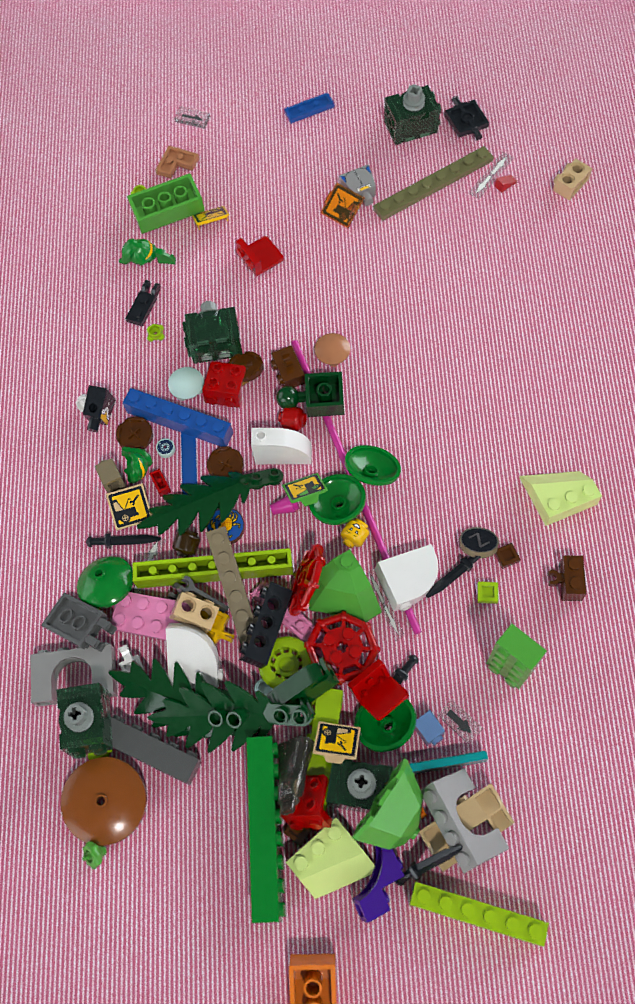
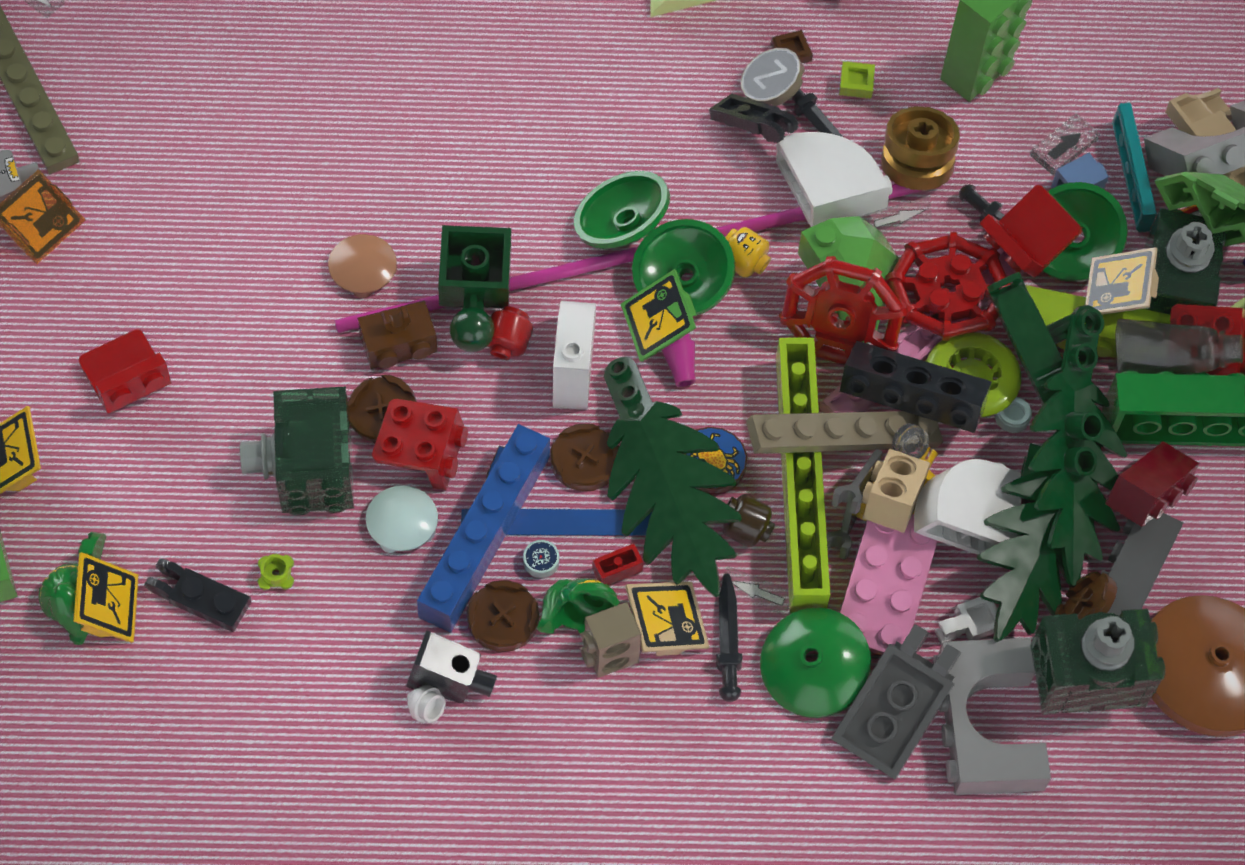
camera: 95 degrees left, 5 degrees down
(130, 721) = (1089, 596): none -> reddish brown tile
(135, 263) = (105, 599): none -> piece
(207, 763) = (1153, 484): none -> dark red brick
(232, 624) = (911, 440): none -> clear tile
(435, 626) = (920, 148): none -> pearl gold wheel
(446, 530) = (754, 117): none -> black hinge

